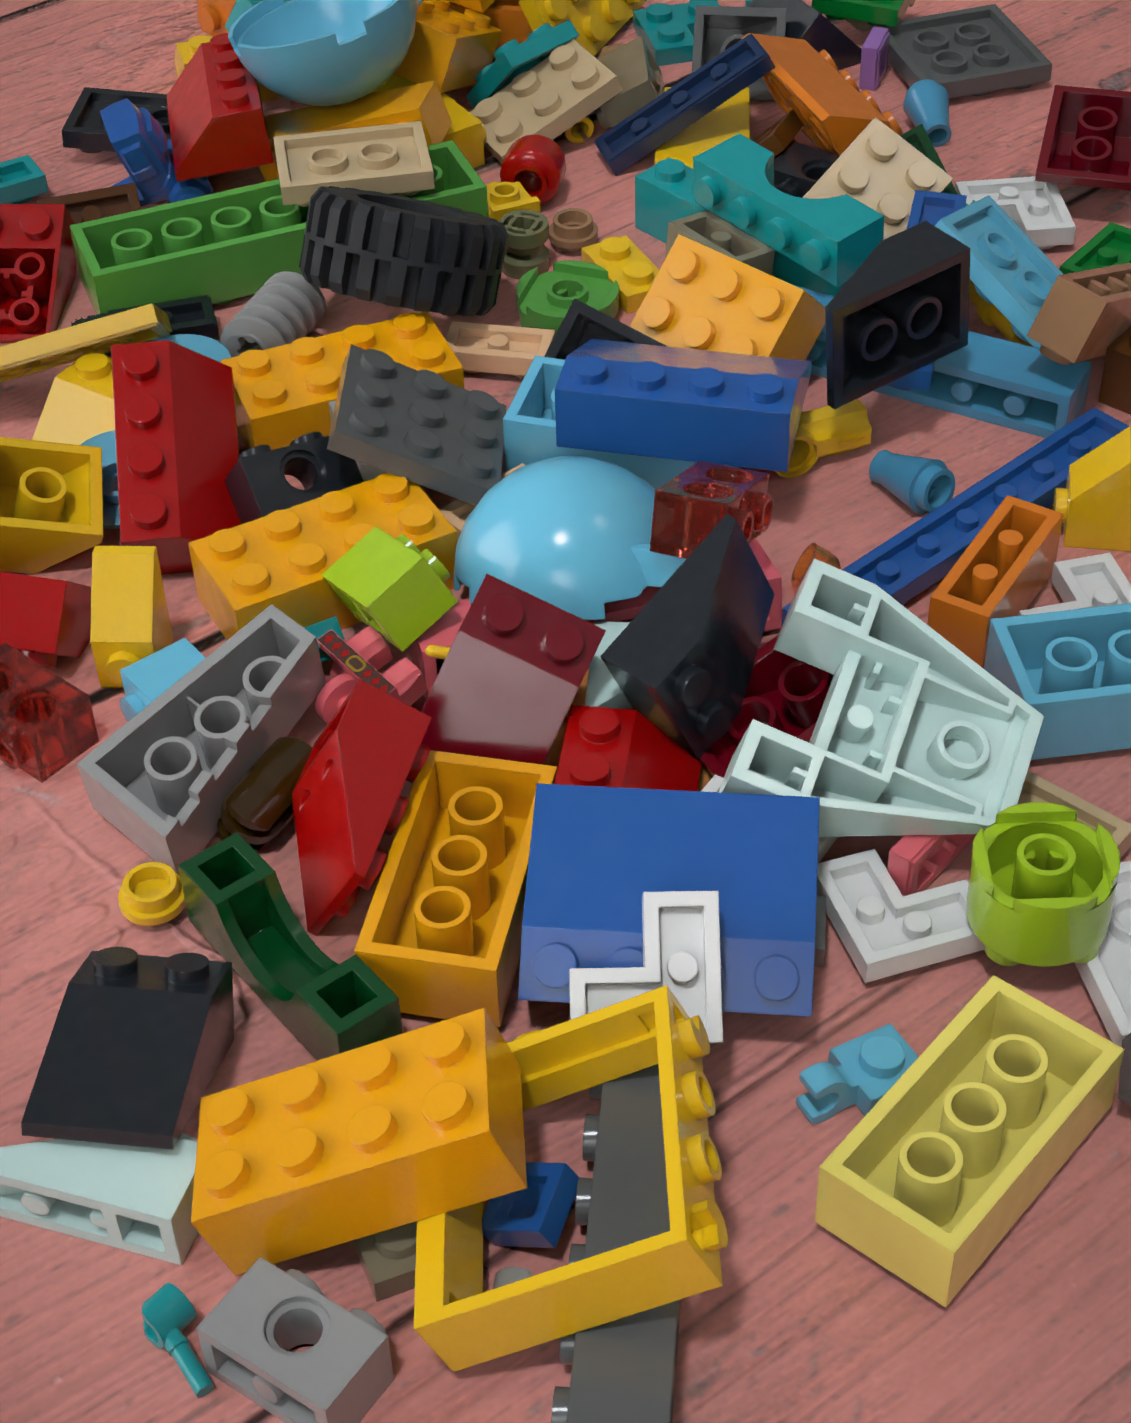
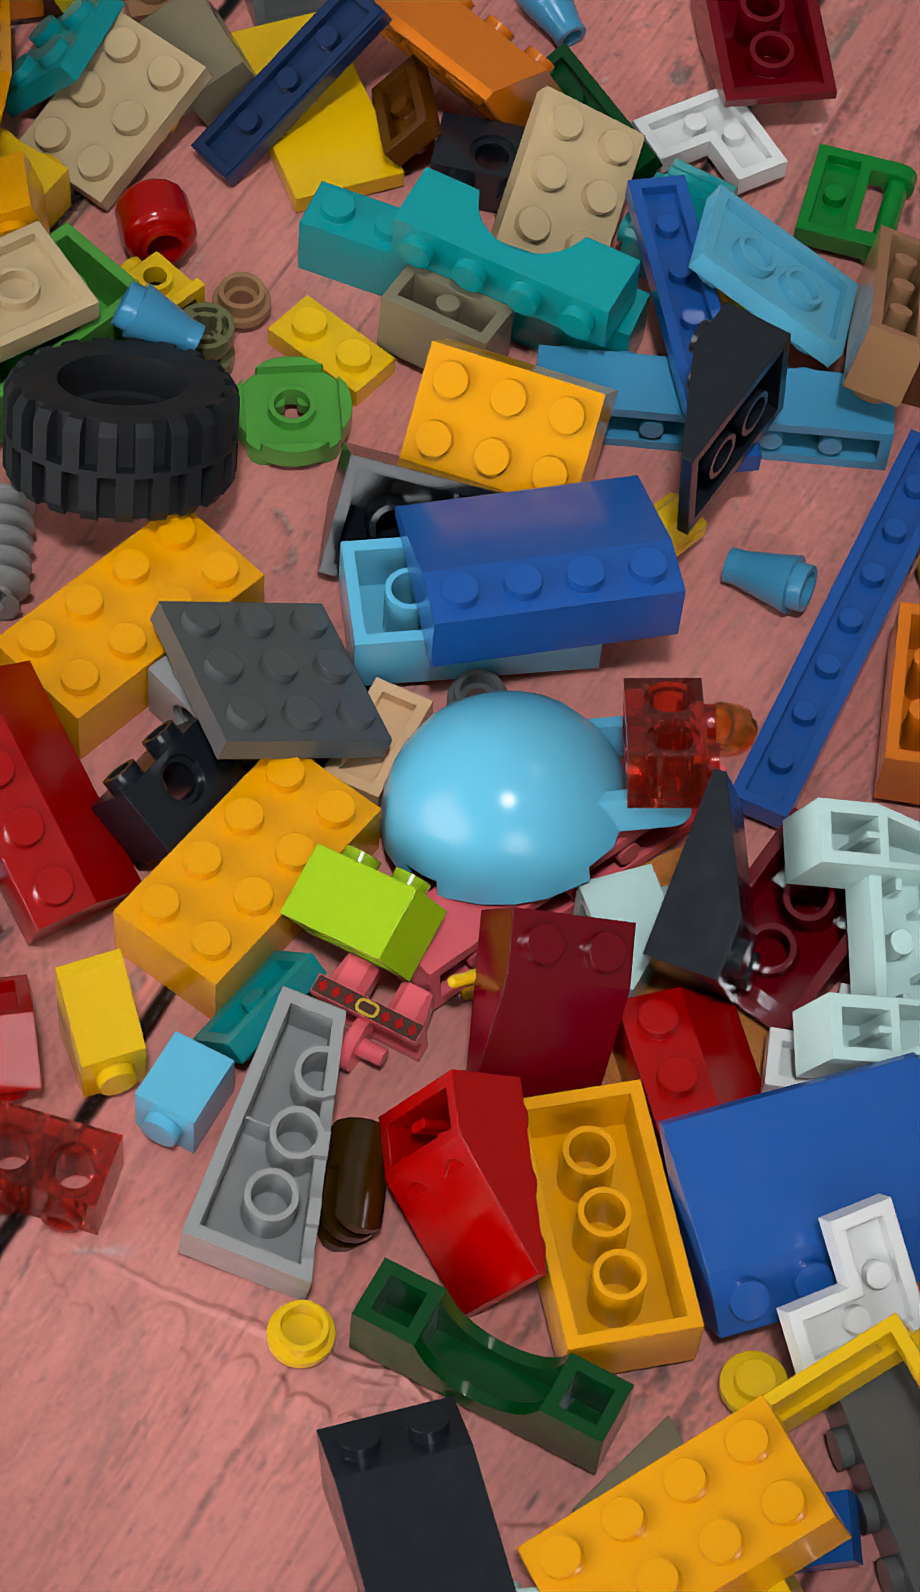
camera: 30 degrees left, 15 degrees up
(473, 192) = (155, 318): none -> dark azure cone
(497, 347) = (266, 511): light nougat plate -> none

